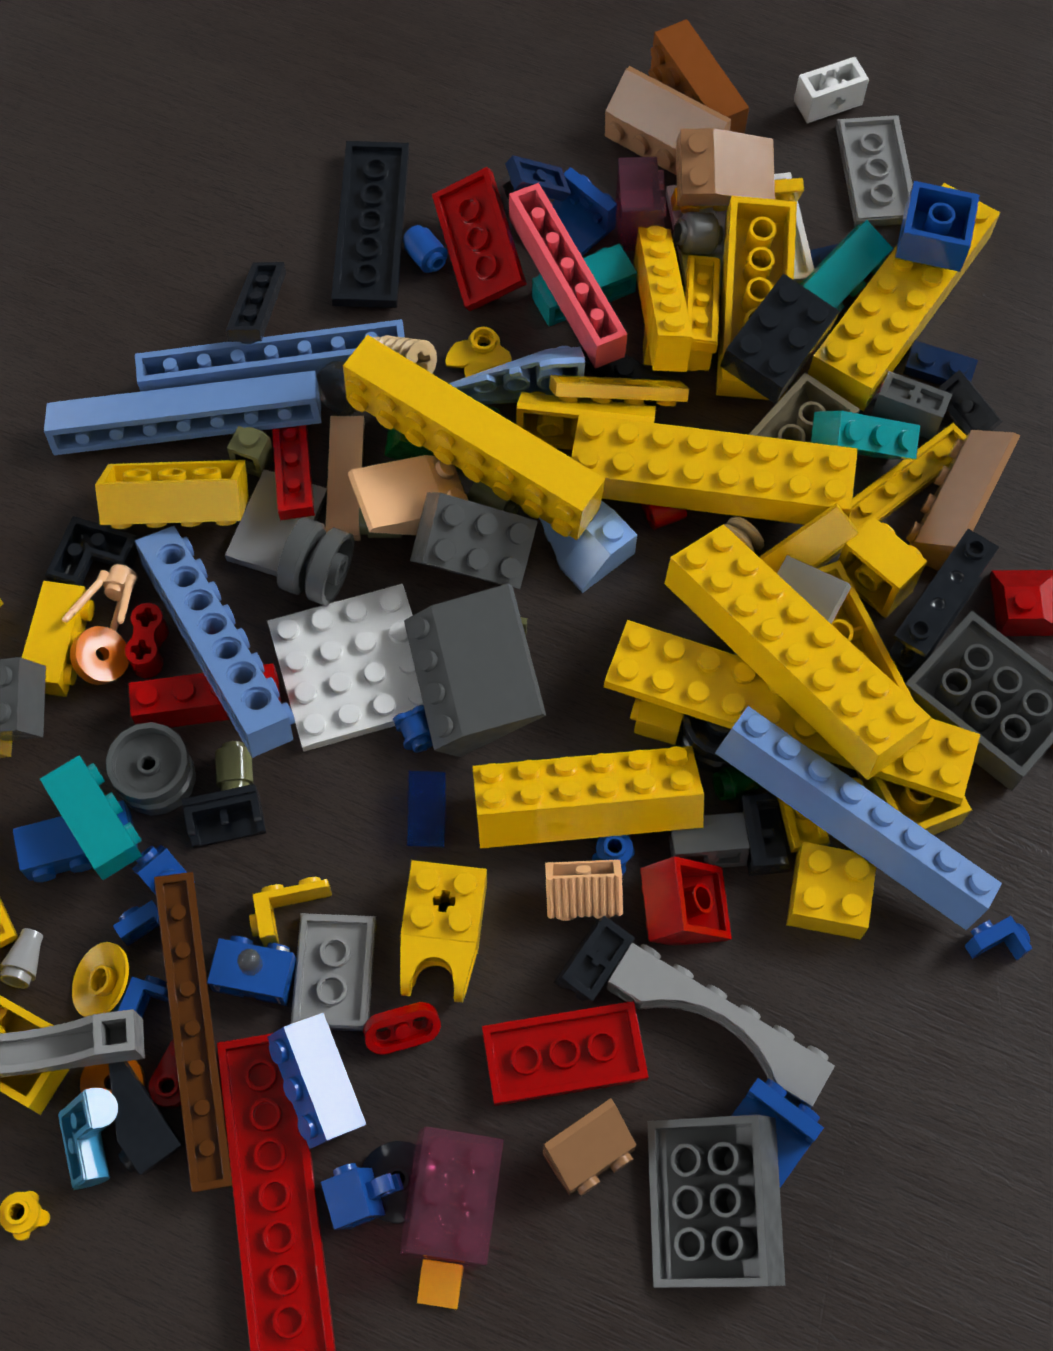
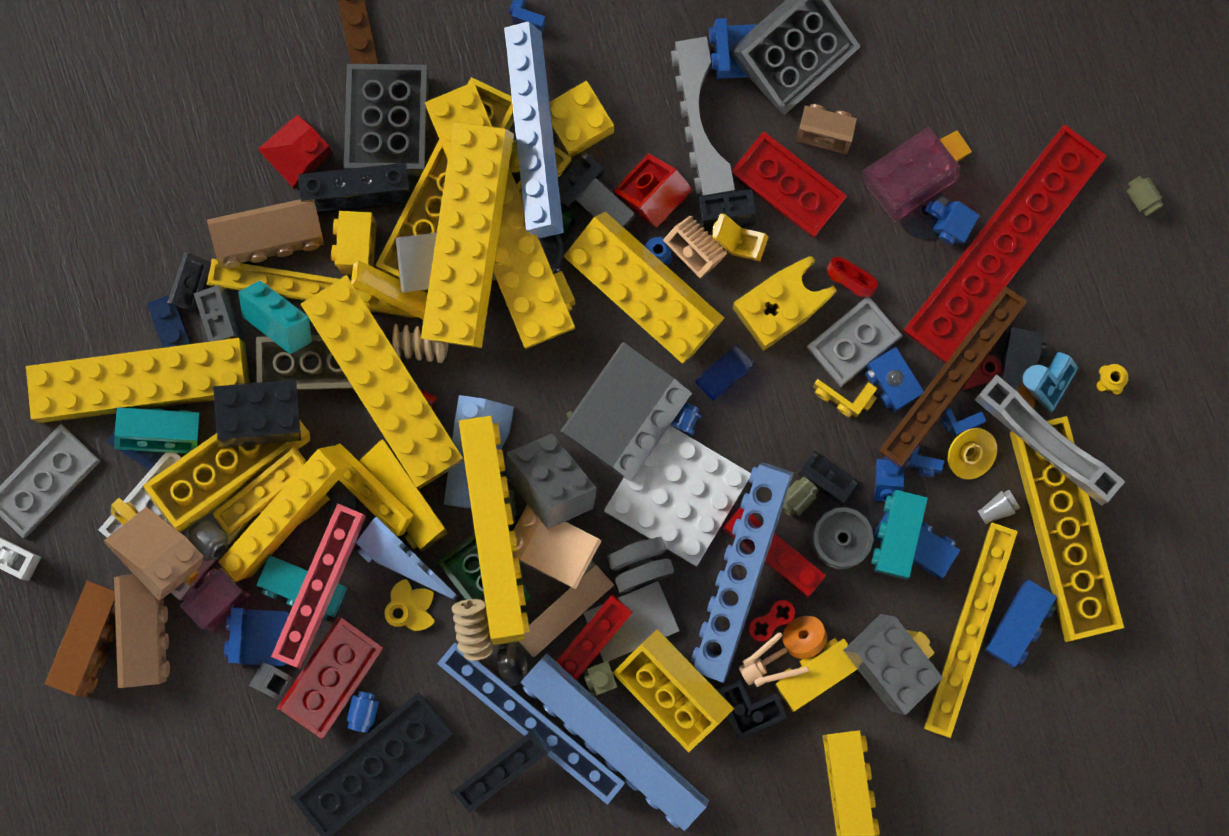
camera: 130 degrees left, 15 degrees up
(315, 1080) = (919, 290): brick -> none
(527, 172) = (261, 667): dark blue plate -> none
(553, 942) = (737, 240): none -> yellow bracket
(937, 226) = (87, 383): blue brick -> none

